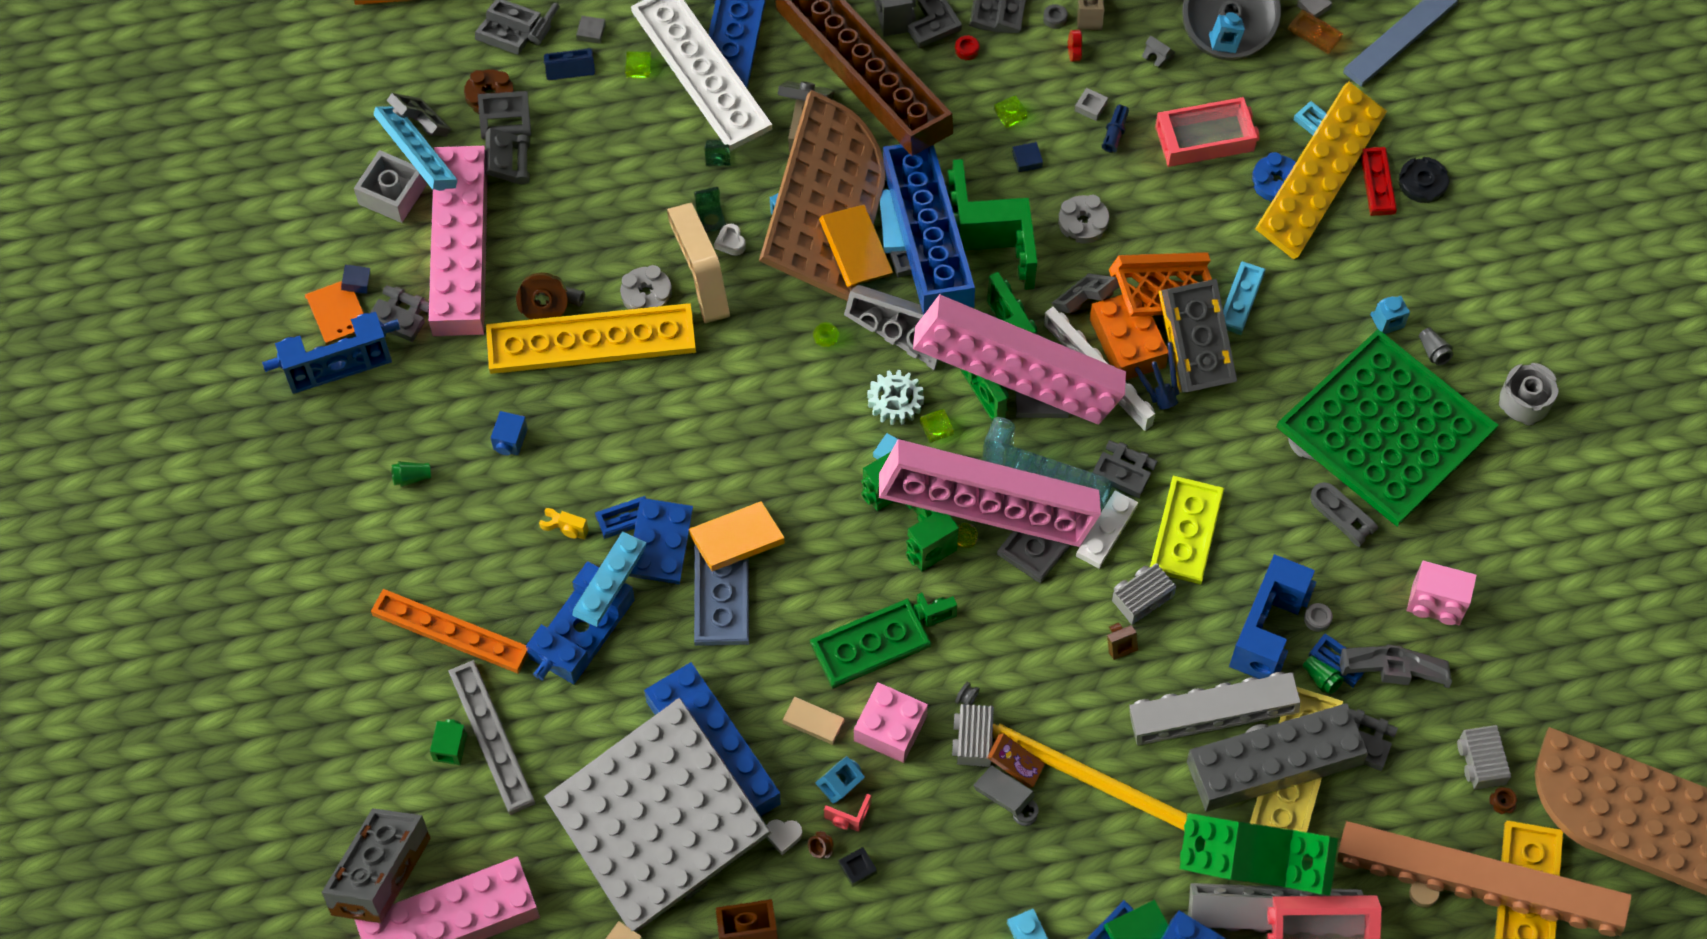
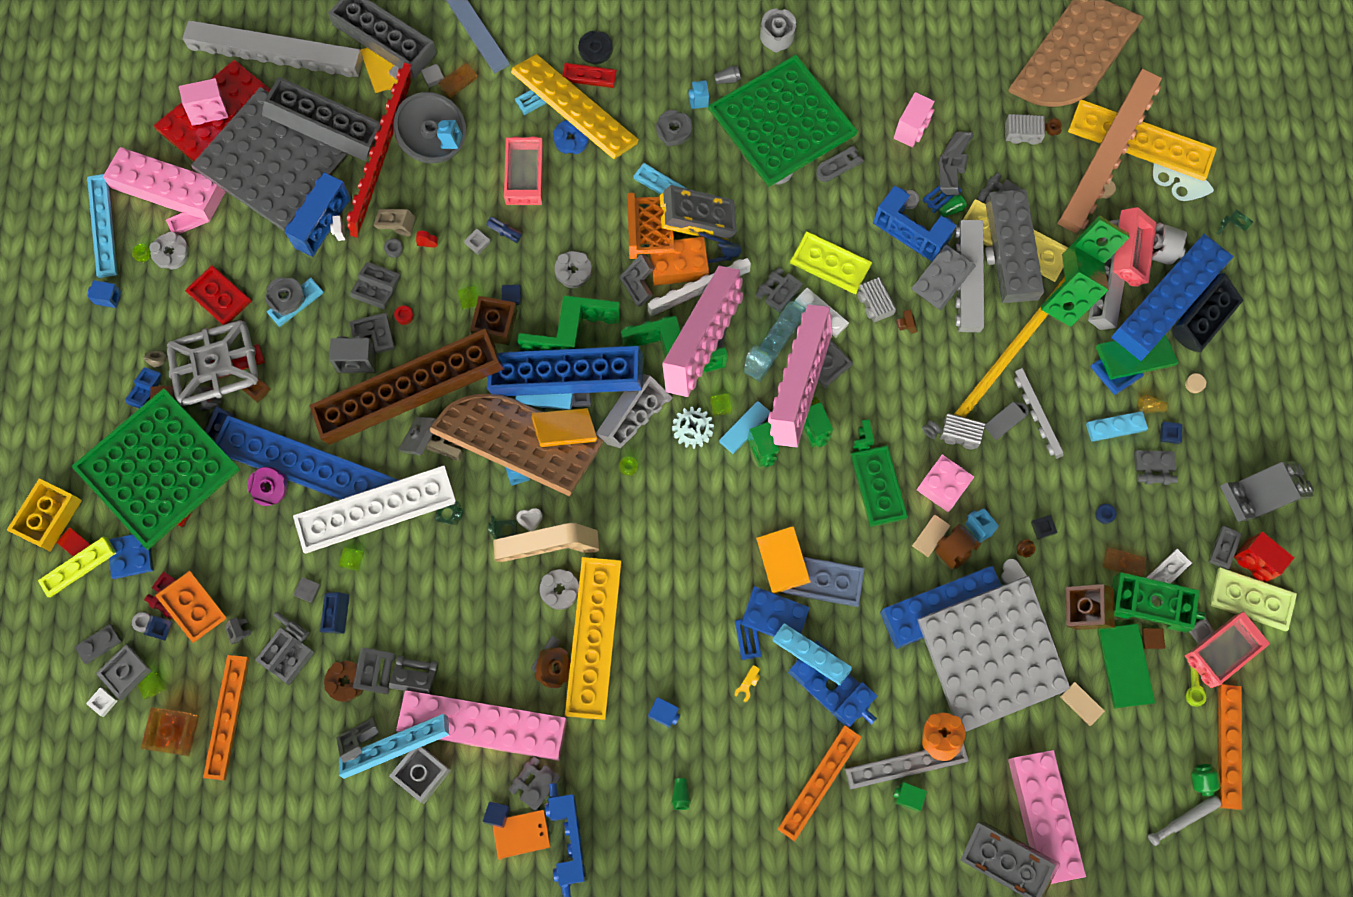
camera: 80 degrees left, 10 degrees up
(533, 766) = (943, 725): none -> orange brick
(799, 747) = (957, 547): none -> reddish brown brick
(844, 820) = (1011, 519): coral bracket -> none
(982, 139) = (496, 317): none -> reddish brown brick
(1016, 760) = (986, 408): dark orange tile -> none
(1027, 836) = (1037, 414): none -> light grey plate
(1162, 51) = (444, 184): dark grey tile -> none
(1199, 669) = (943, 277): none -> dark grey plate
(1328, 308) = (674, 118): none -> dark grey plate

